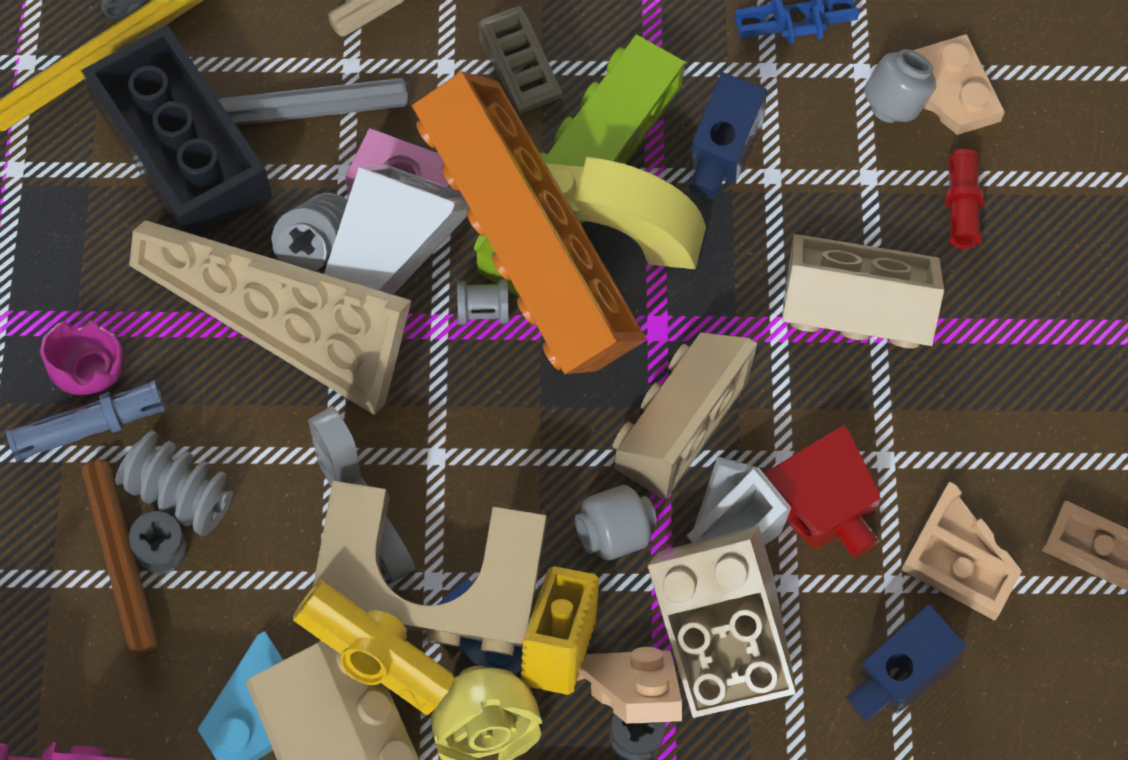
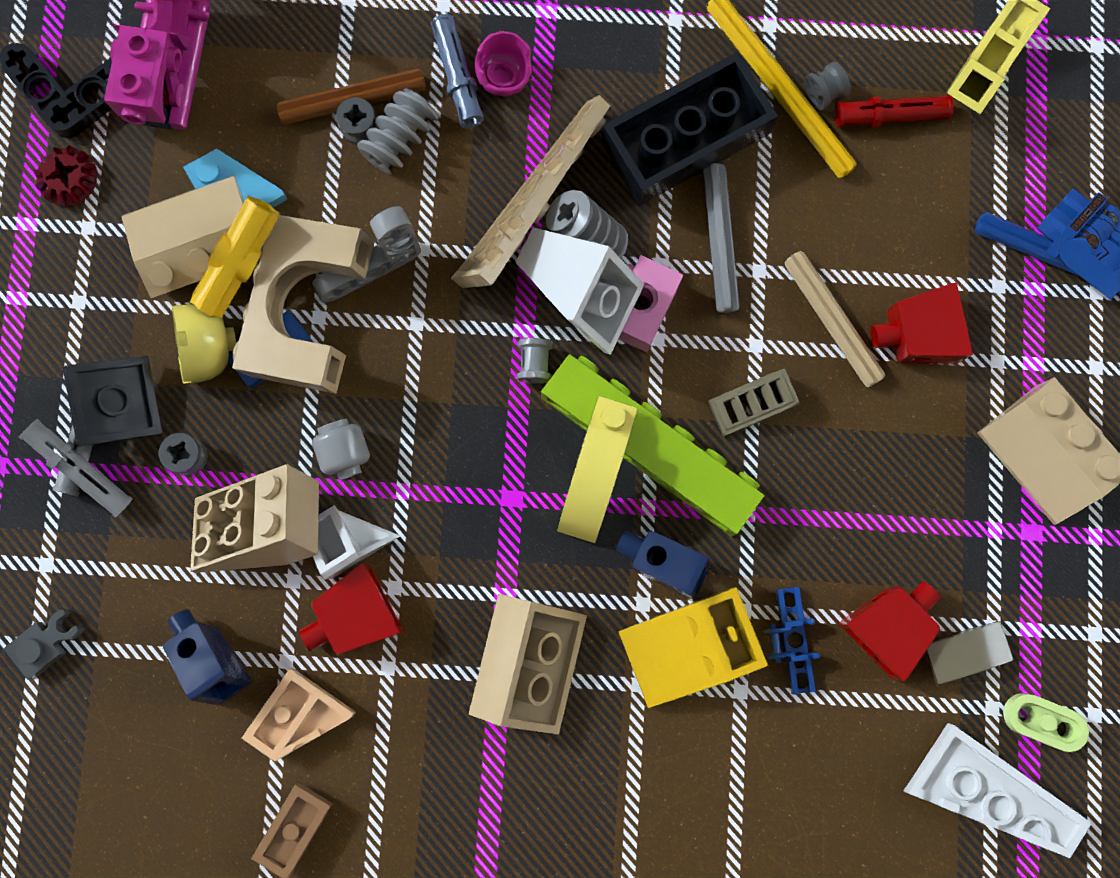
camera: 95 degrees right, 15 degrees up
(527, 224) = (564, 385): orange brick -> none
(560, 630) = (251, 397): yellow brick -> none
(635, 684) = (209, 452): light nougat wing -> none
(684, 411) = (424, 505): tan slope -> none
(821, 107) = (693, 647): none -> yellow slope
(900, 86) = (710, 718): light grey head -> none
(962, 91) = (722, 764): light nougat wing -> none
(964, 199) = (607, 762): red pin -> none

